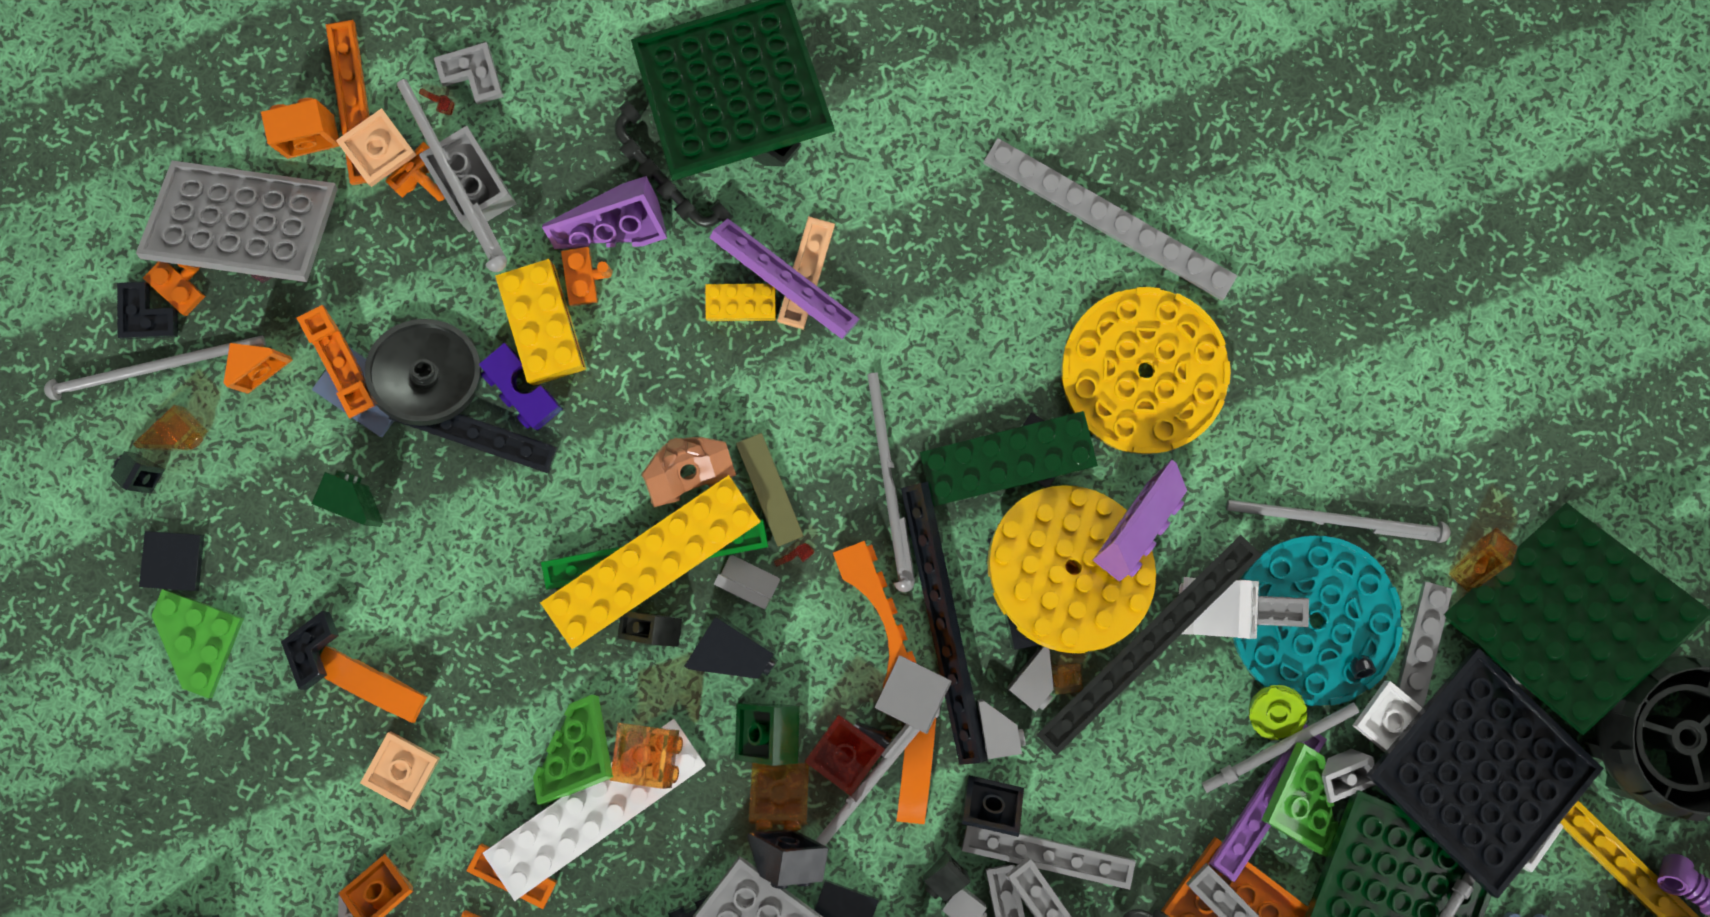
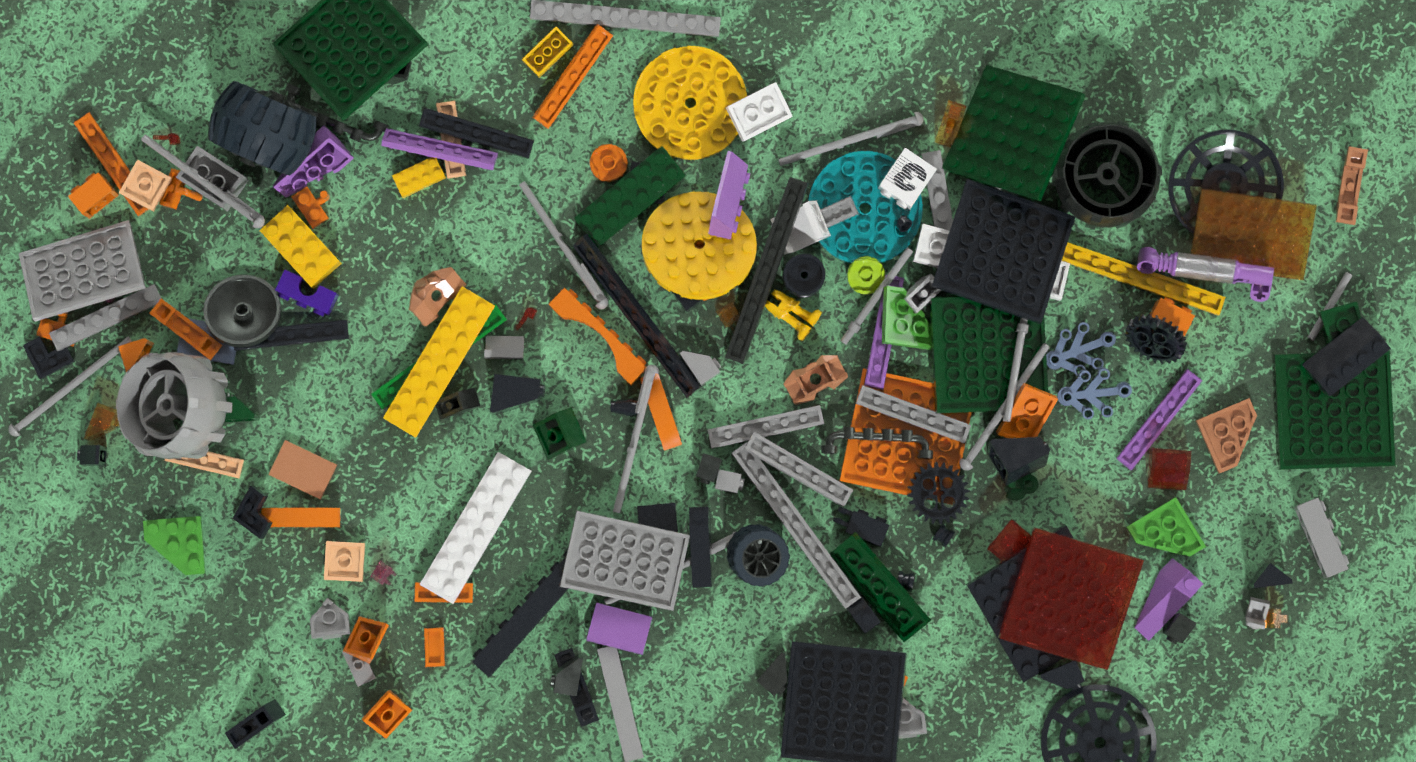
camera: 25 degrees left, 0 degrees up
(171, 561) = (139, 501): black tile -> none
(240, 297) = (105, 317): none -> light grey plate
(257, 458) = (167, 389): none -> light grey wheel
(282, 546) = (214, 463): none -> light nougat tile
(341, 842) = (329, 622): none -> light grey plate
(405, 620) = (302, 469): none -> nougat tile
(442, 810) = (382, 572): none -> clear pink tile
(473, 65) = (180, 105): light grey plate -> none
(556, 138) = (261, 128): none -> black wheel
(575, 755) = (448, 500): bright green plate -> none
(646, 755) = (491, 478): clear orange plate -> none
(769, 489) = (491, 284): olive tile -> none
(779, 796) = (584, 467): clear orange plate -> none
(788, 858) = (607, 498): black slope -> none
(842, 279) = (476, 133): none -> black tile
(844, 755) = (612, 422): clear red slope -> none
(913, 694) = (636, 365): light grey tile -> none
(987, 216) = (547, 52): none -> yellow piece
(992, 806) = (717, 412): black slope -> none
(993, 405) = (610, 168): none -> orange tile
(1005, 263) = (572, 76): none -> orange tile
(1034, 681) = (709, 325): light grey slope -> none
(1120, 826) = (799, 383): none -> nougat piece
(1156, 704) = (788, 304): none -> yellow piece
(1207, 687) = (796, 284): none -> black wheel
(1233, 425) = (759, 111): none -> white plate
(1396, 611) = (906, 179): none -> white panel

